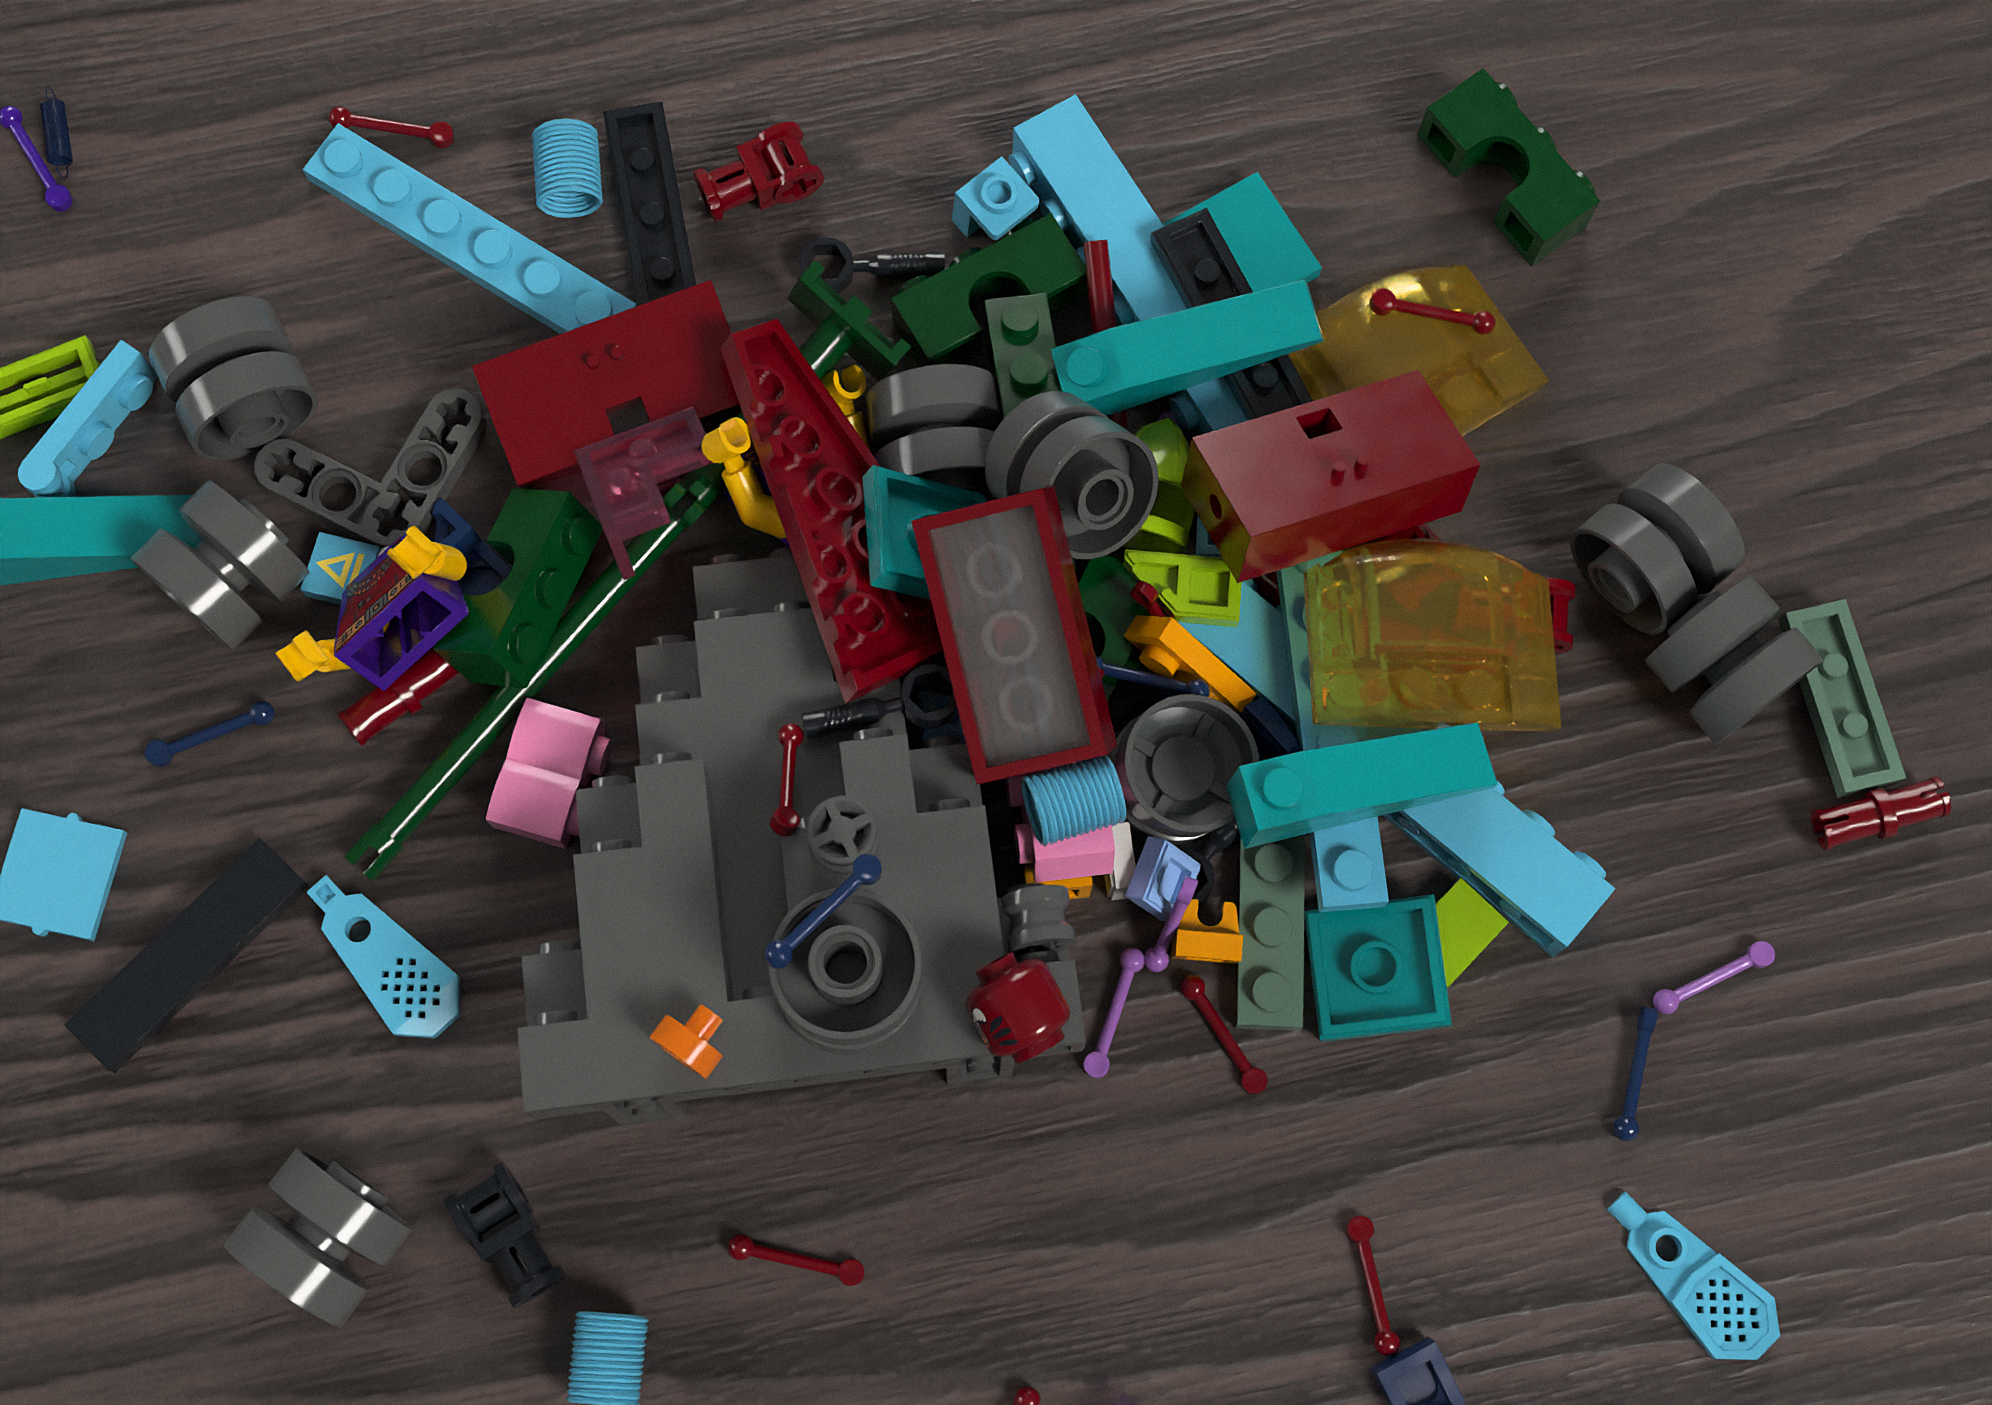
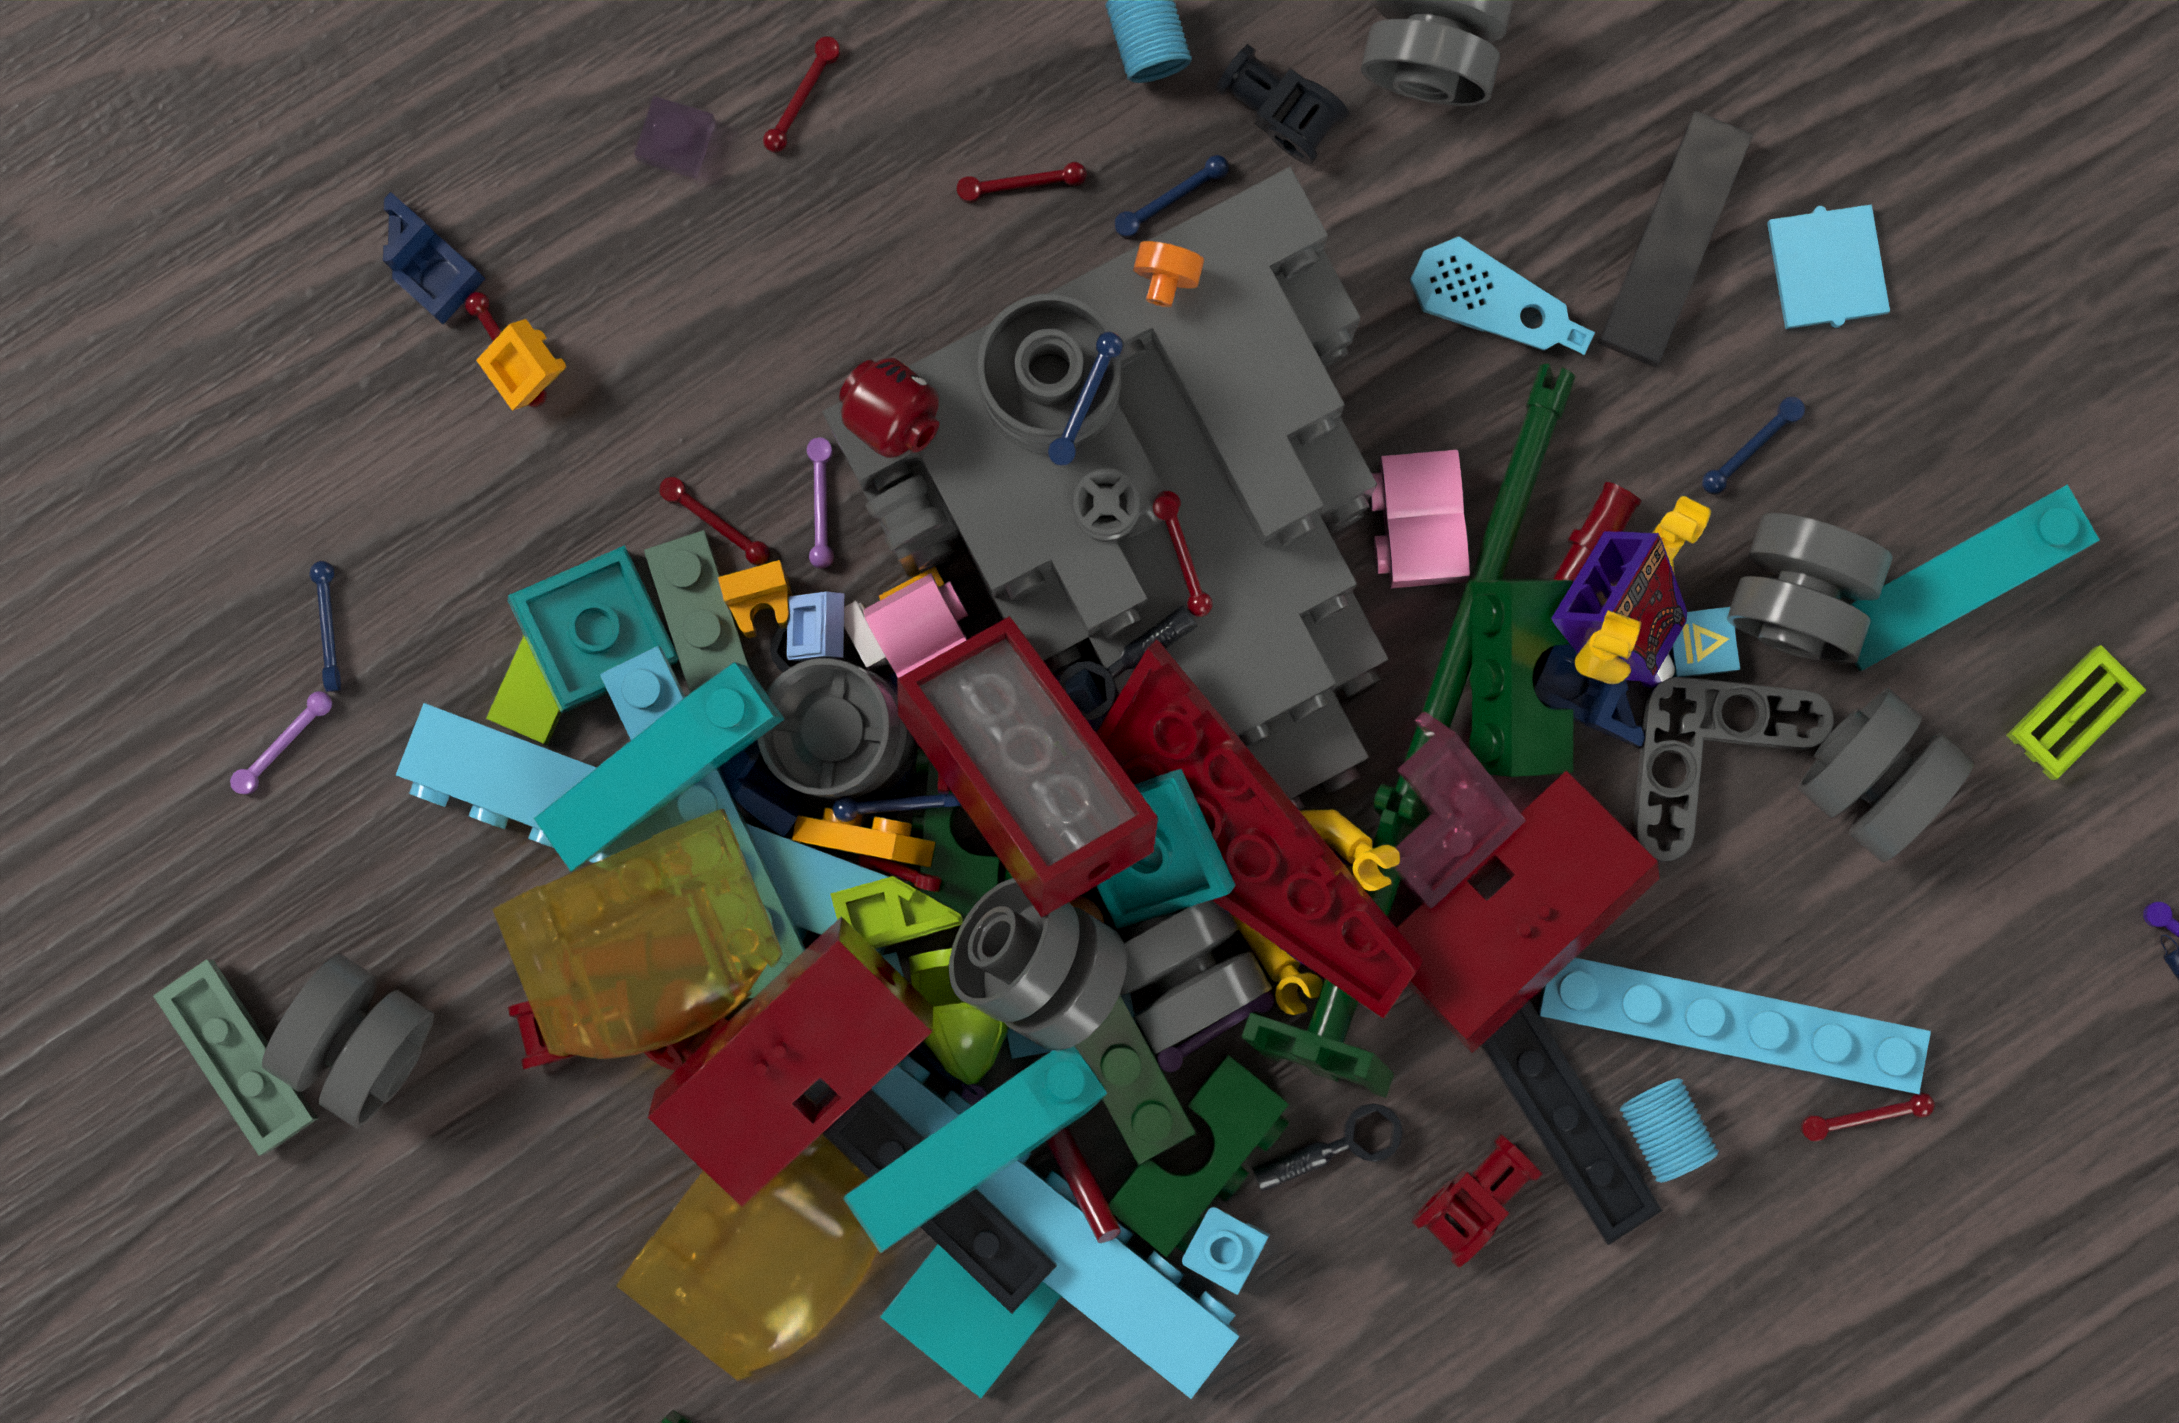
camera: 165 degrees right, 10 degrees up
(88, 423) = (2007, 683): medium azure plate -> none
(707, 1176) = (1128, 223): none -> dark blue hinge
(1073, 799) = (915, 635): medium azure piece -> none
(1156, 958) = (799, 567): medium lavender hinge -> none
(1363, 1255) = (520, 364): none -> light orange tile
(1384, 301) = (802, 1291): dark red hinge -> none
(1657, 548) = (464, 1109): dark grey wheel -> none
(1690, 1274) = (226, 465): medium azure piece -> none
(1880, 813) = (167, 956): dark red pin -> none

